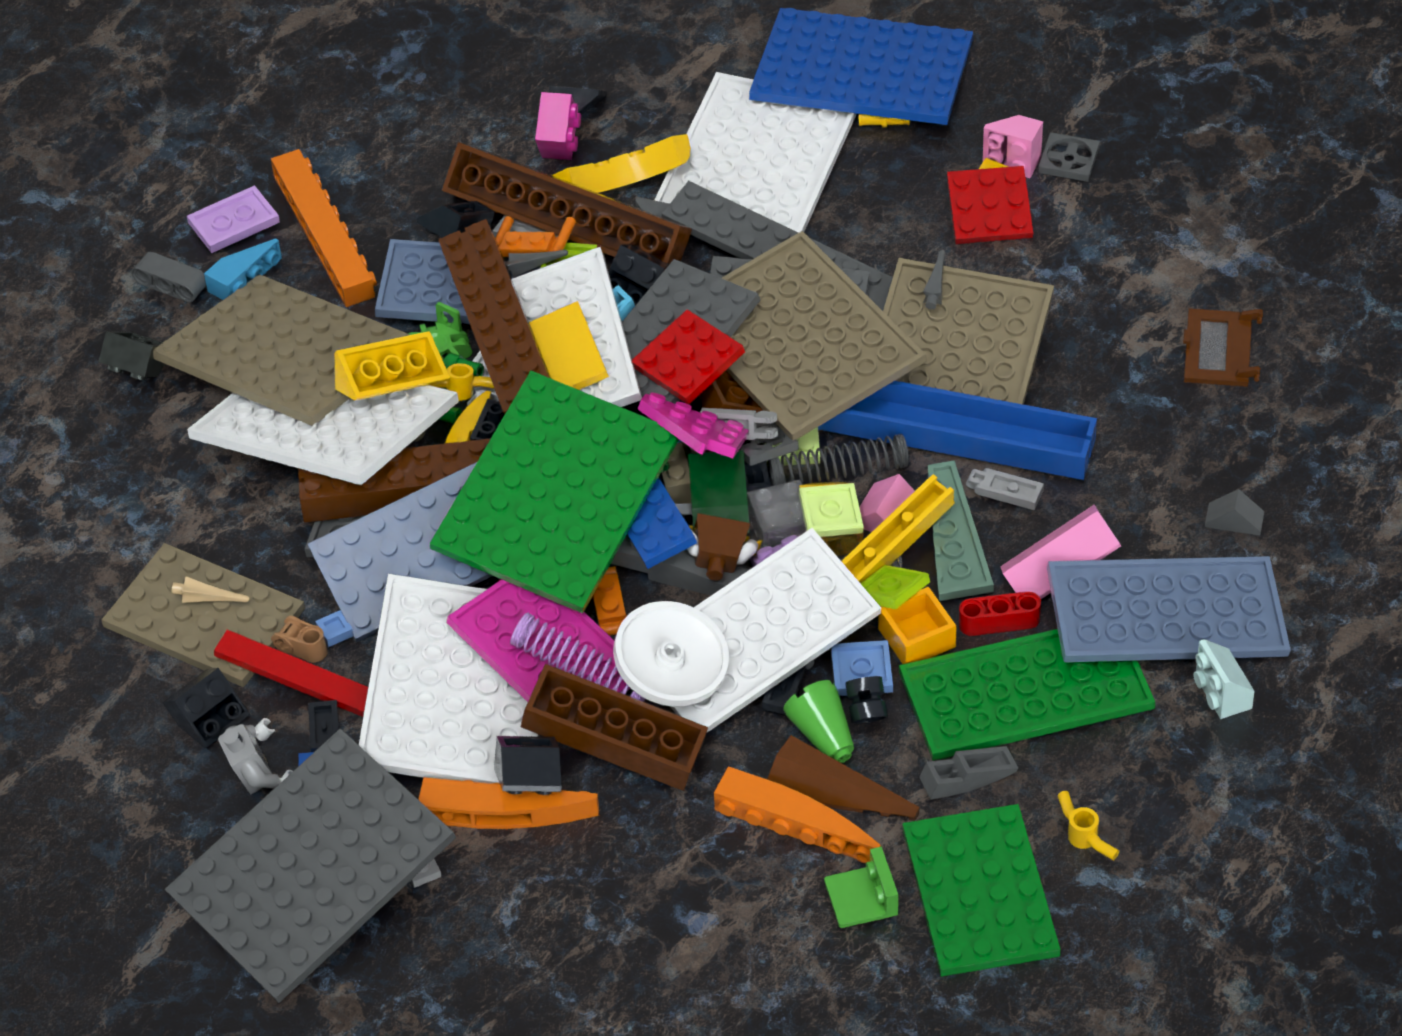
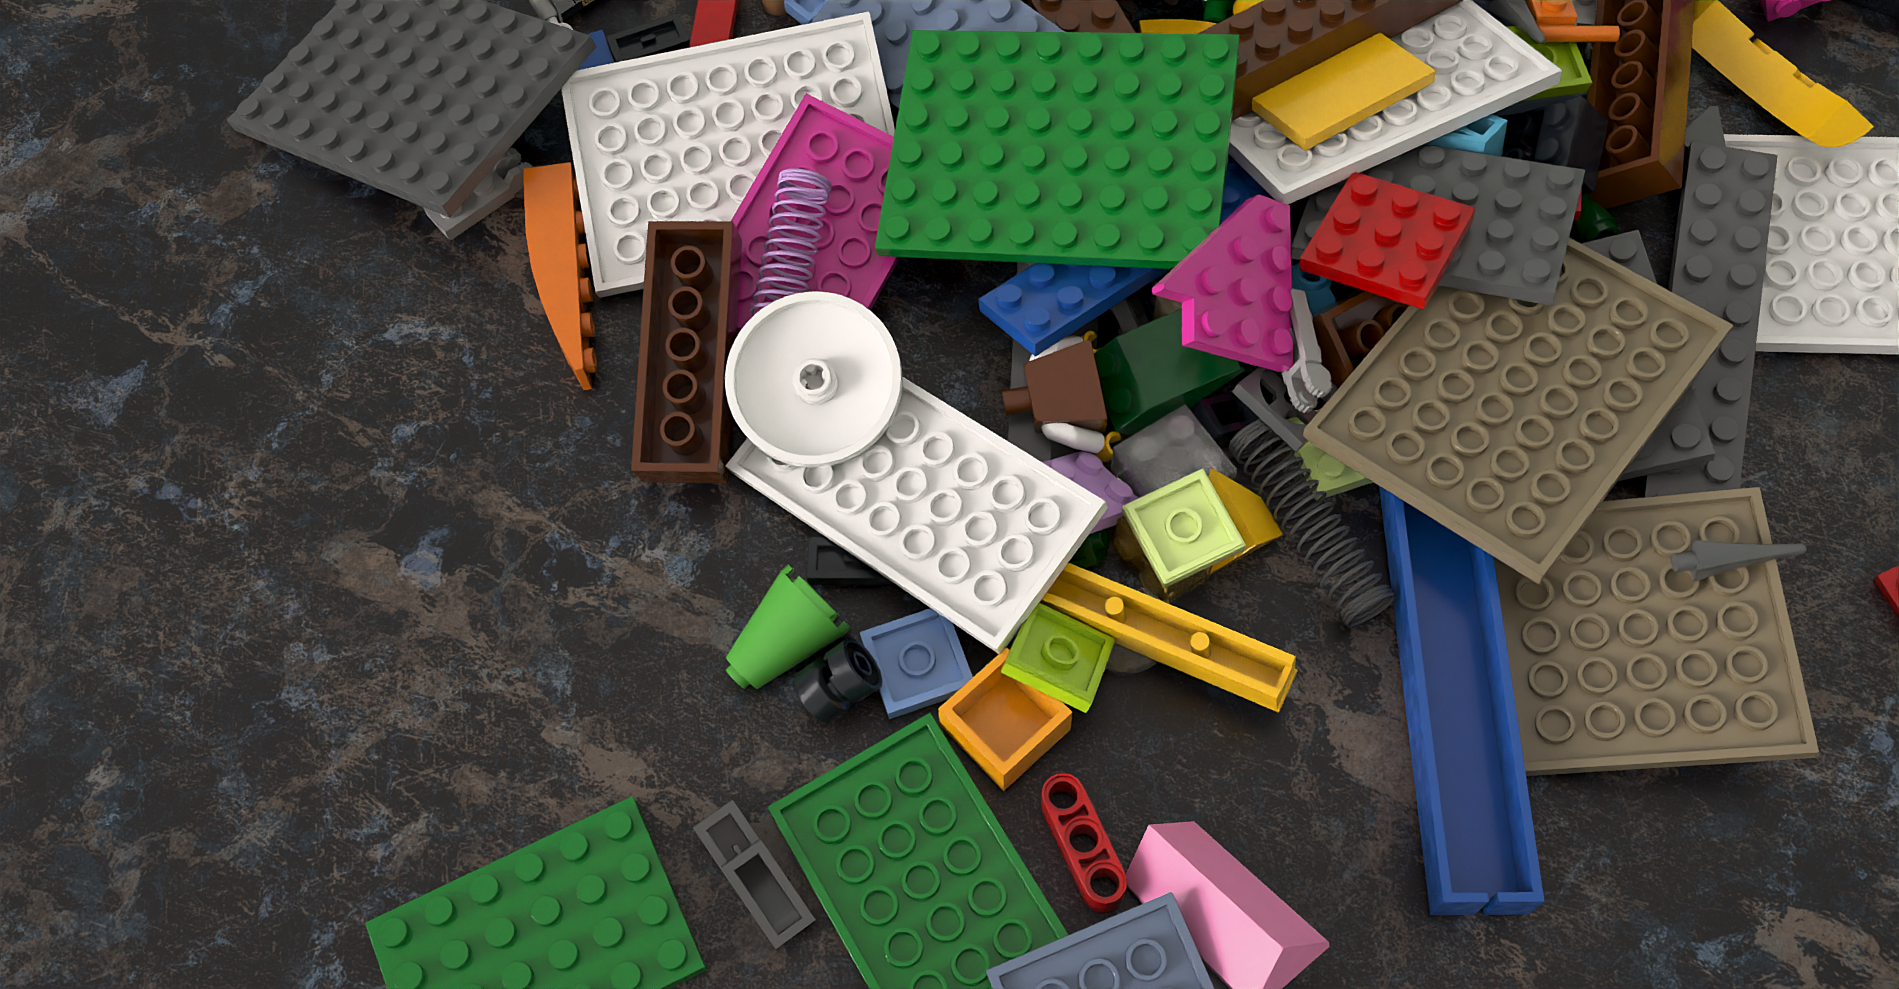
camera: 75 degrees right, 15 degrees up
(528, 764) = (592, 266): black slope -> none
(609, 602) = (944, 294): orange plate -> none
(790, 814) = (612, 634): orange slope -> none
(834, 783) = (690, 638): reddish brown wedge -> none
(863, 893) = (489, 771): bright green bracket -> none
(883, 500) = (1255, 608): bright pink slope -> none
(957, 547) = (1199, 745): sand green wing -> none
(1006, 487) = (1358, 790): light grey hinge -> none

